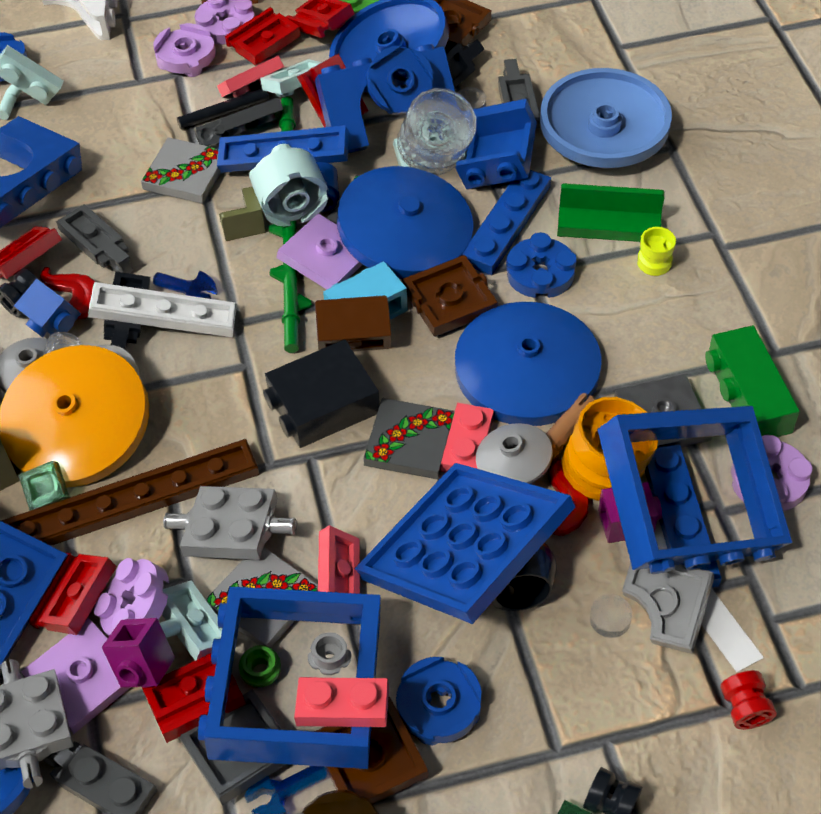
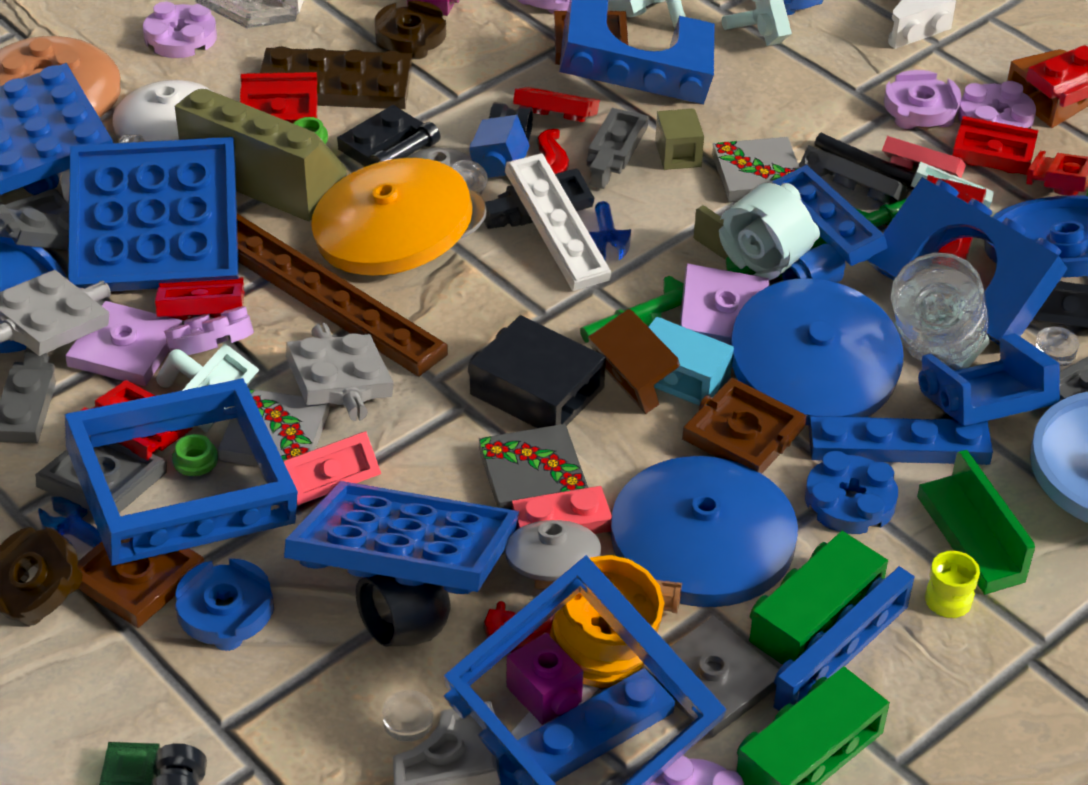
camera: 60 degrees right, 10 degrees down
(43, 485) = (303, 230): clear green tile -> none
(123, 198) = (679, 139): none -> olive panel
(138, 652) = (144, 352): magenta brick -> none
(329, 644) = (198, 467): light grey plate -> none
(342, 702) = (148, 495): coral plate -> none
(403, 61) = (998, 229): blue plate -> none
(634, 327) = (814, 596): none -> green brick
(679, 334) = (846, 639): none -> blue plate

